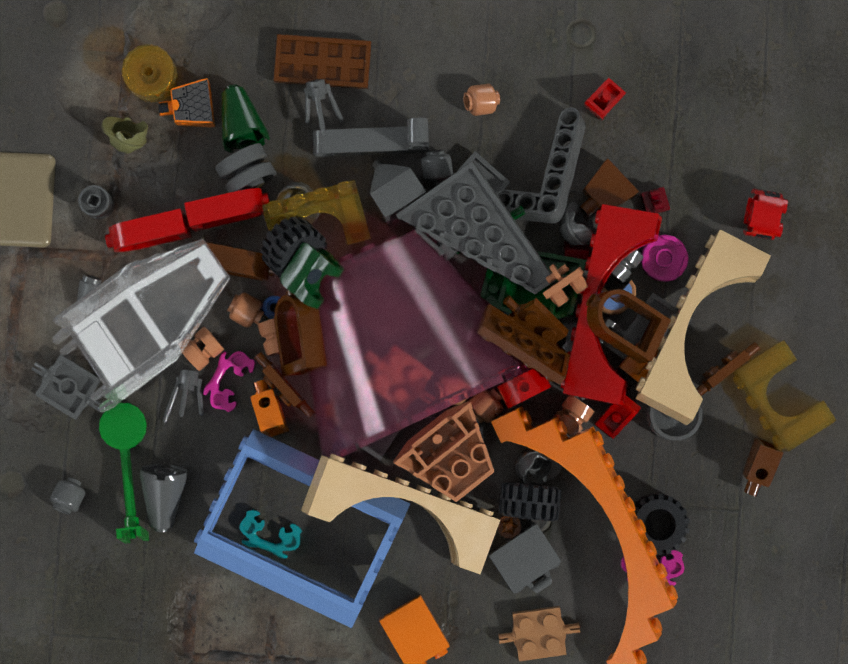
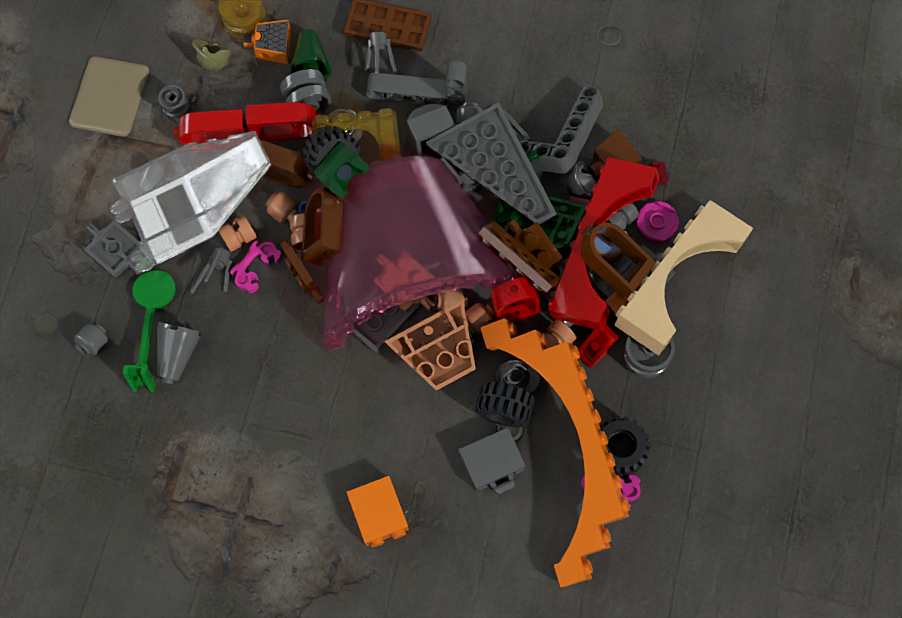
camera: 15 degrees right, 15 degrees down
(250, 526) = (280, 411): teal helmet -> none
(271, 418) = (284, 294): orange torso -> none
(272, 573) = (264, 436): medium blue door -> none
(343, 485) = (440, 420): tan arch -> none
(481, 99) = (516, 70): nougat head -> none
(509, 527) = (481, 428): reddish brown tile -> none
(539, 633) = (494, 532): medium nougat plate -> none
(556, 292) = (561, 214): nougat hips -> none
(604, 99) = (620, 84): red slope -> none
(730, 363) = (696, 319): reddish brown plate -> none
(754, 379) = (750, 382): clear yellow arch -> none
(764, 214) = (750, 193): red brick -> none
(764, 456) = (728, 400): reddish brown torso -> none

